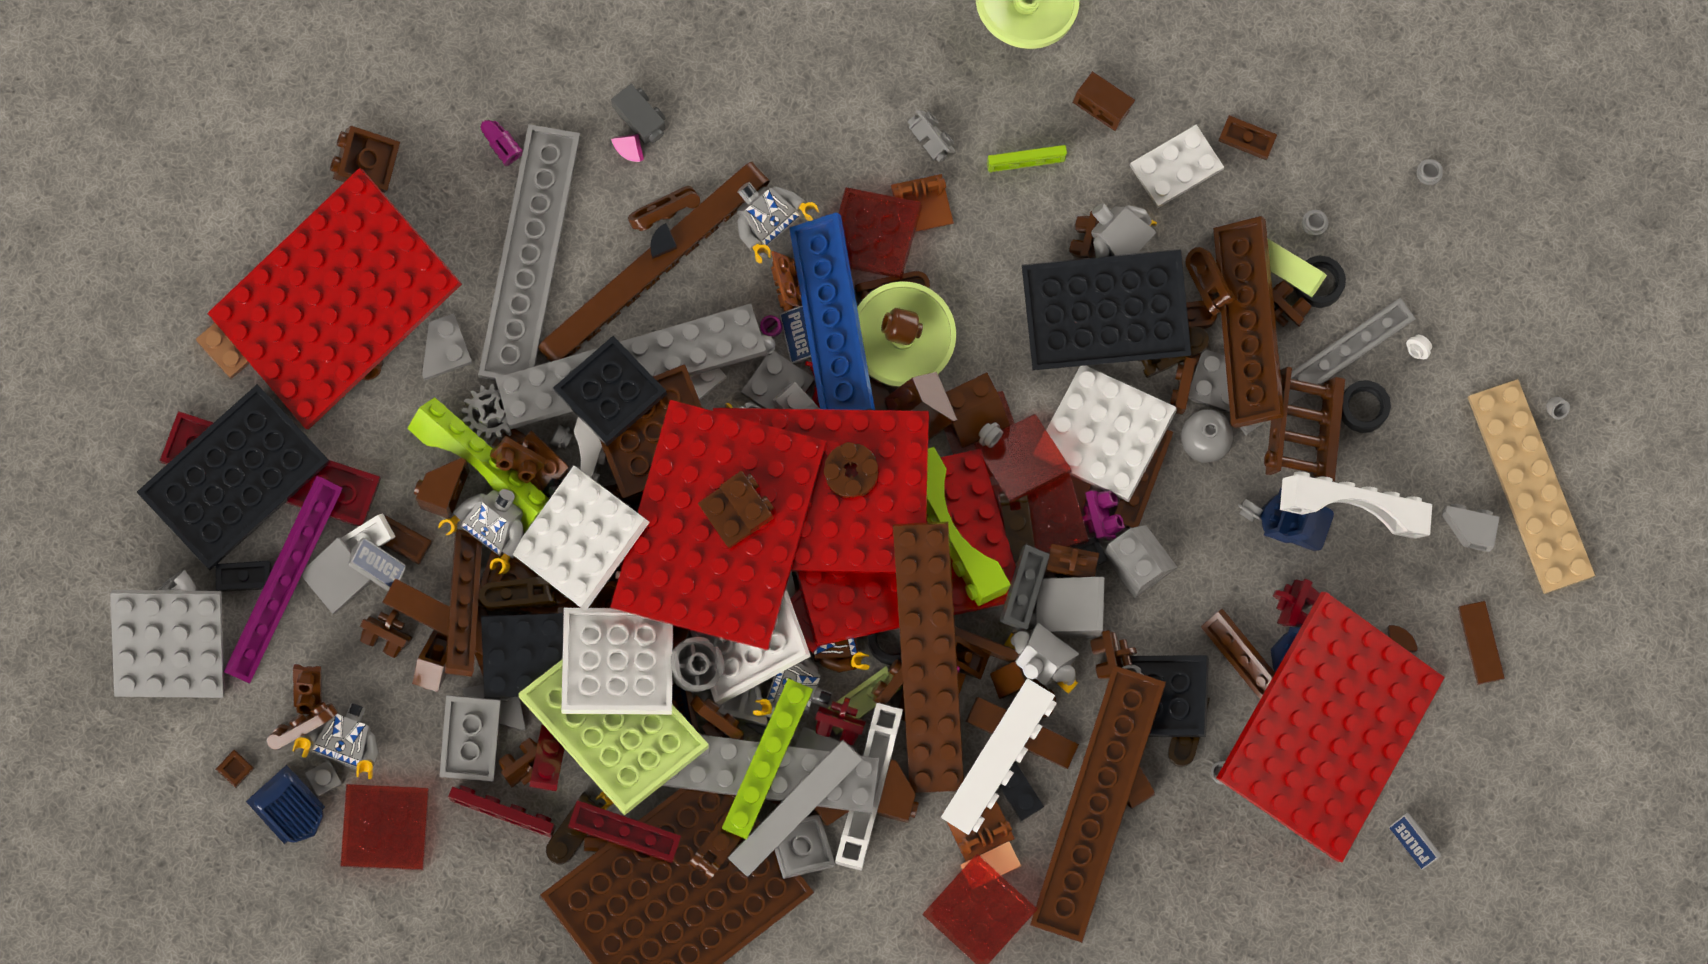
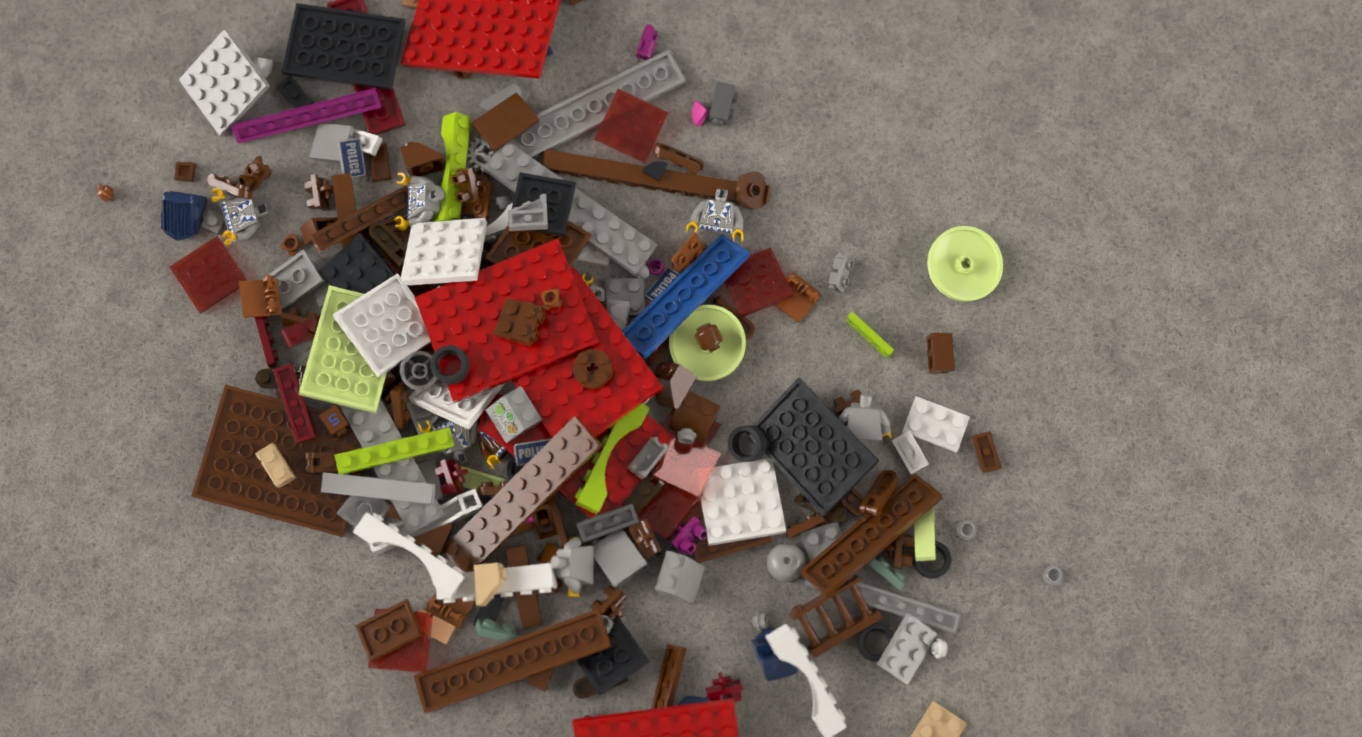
camera: 60 degrees right, 0 degrees up
(188, 877) = (105, 192): none -> dark orange plate
(416, 704) = (291, 239): none -> dark orange plate
(465, 785) = (260, 297): none -> dark orange hinge
(472, 363) = (505, 121): none -> reddish brown tile
(587, 230) = (631, 126): none -> clear red plate
(617, 411) = (529, 215): none -> light grey wing
(680, 801) = (335, 421): none -> reddish brown brick
(681, 903) = (275, 465): none -> tan brick
(707, 611) = (442, 352): none -> black tyre
(735, 448) = (546, 295): none -> dark orange plate
(767, 169) = (744, 194): none -> reddish brown plate
(833, 595) = (513, 414): none -> light grey slope
(885, 612) = (526, 451): none -> slope
(953, 805) = (377, 533): none -> white arch
(962, 913) = (389, 630): none -> reddish brown tile
(986, 491) = (647, 458): none -> light grey hinge
(996, 759) = (488, 581): none -> tan slope
(1036, 393) = (733, 444): none -> black tyre
(1049, 798) = (494, 630): none -> sand green plate
(1187, 215) = (910, 452): none -> white plate
(1310, 333) = (882, 567): none -> sand green plate
(1396, 379) = (907, 649): none -> light grey plate

